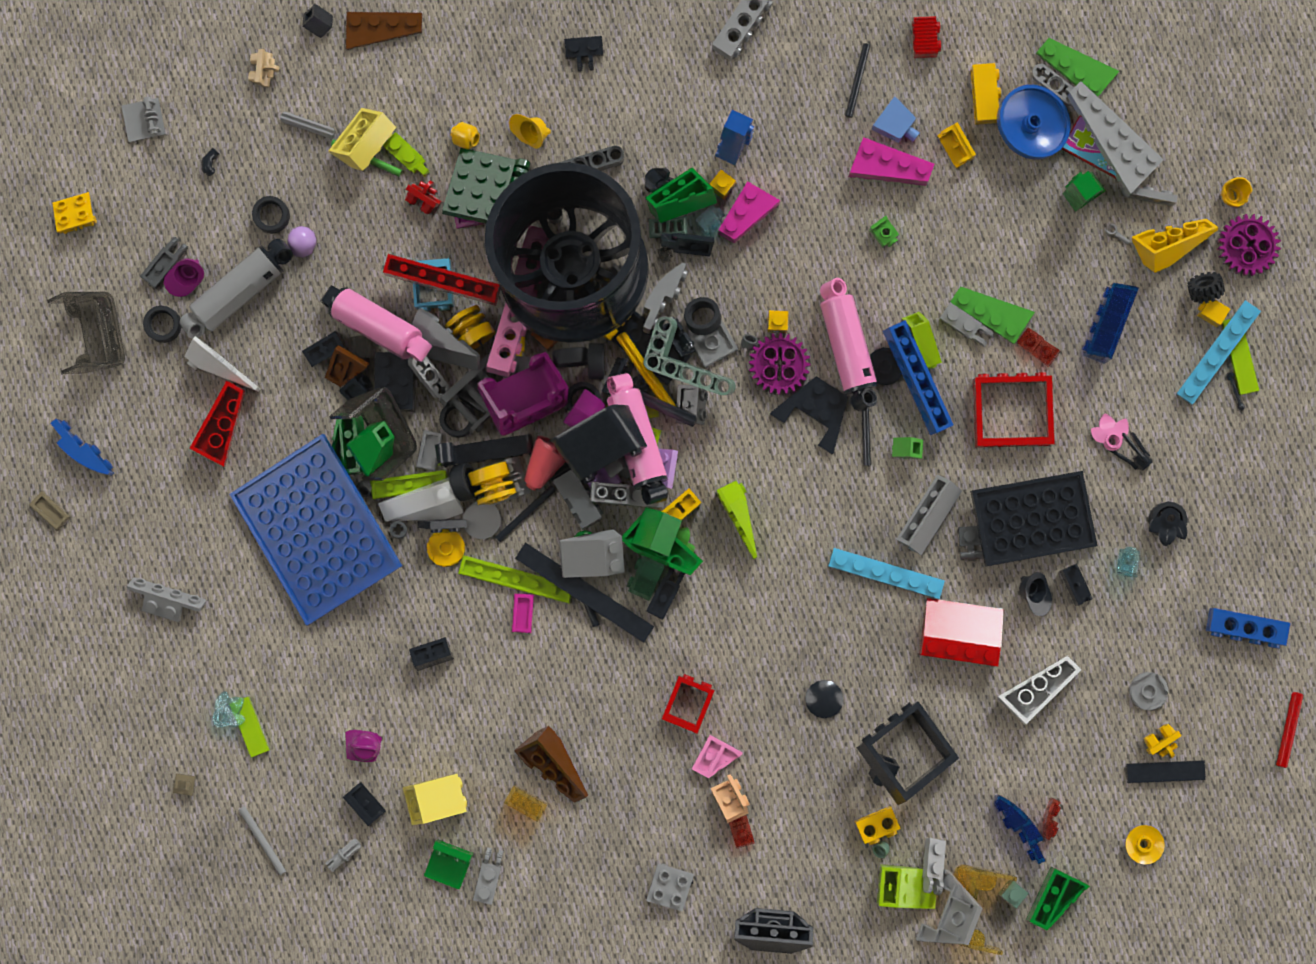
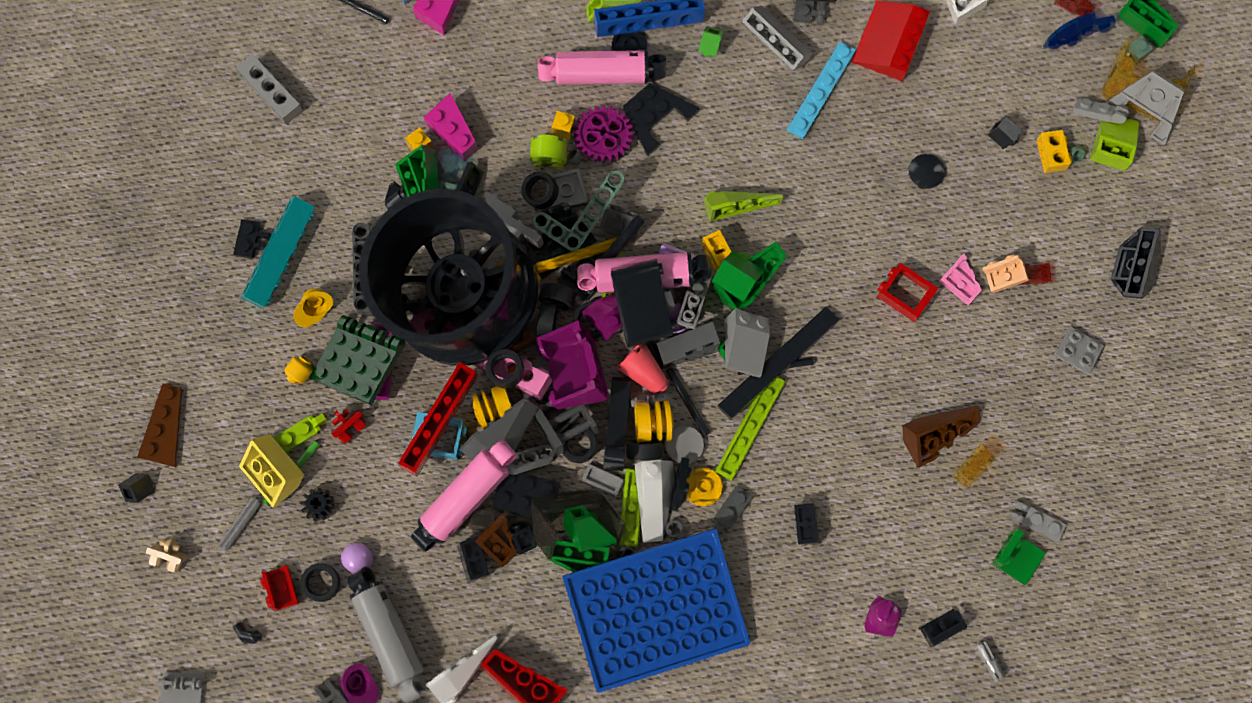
camera: 85 degrees left, 10 degrees down
(255, 179) = (279, 588): none -> red bracket
(347, 193) = (311, 510): none -> black gear
(428, 578) = (731, 509): none -> dark grey hinge
(435, 799) = (953, 555): light yellow slope -> none
(503, 314) = (499, 355): none -> black tyre
(522, 613) = (785, 427): dark pink tile -> none
(575, 80) = (277, 252): none -> teal brick
(646, 577) = (777, 300): clear green brick -> none
(664, 595) = (797, 288): black hinge -> none
(734, 136) = (377, 116): blue wedge -> none
(744, 314) = (548, 151): none -> lime brick
(866, 438) = (691, 77): black bar -> none
(877, 228) = (503, 18): bright green brick -> none
(881, 769) = (1031, 117): black window -> none

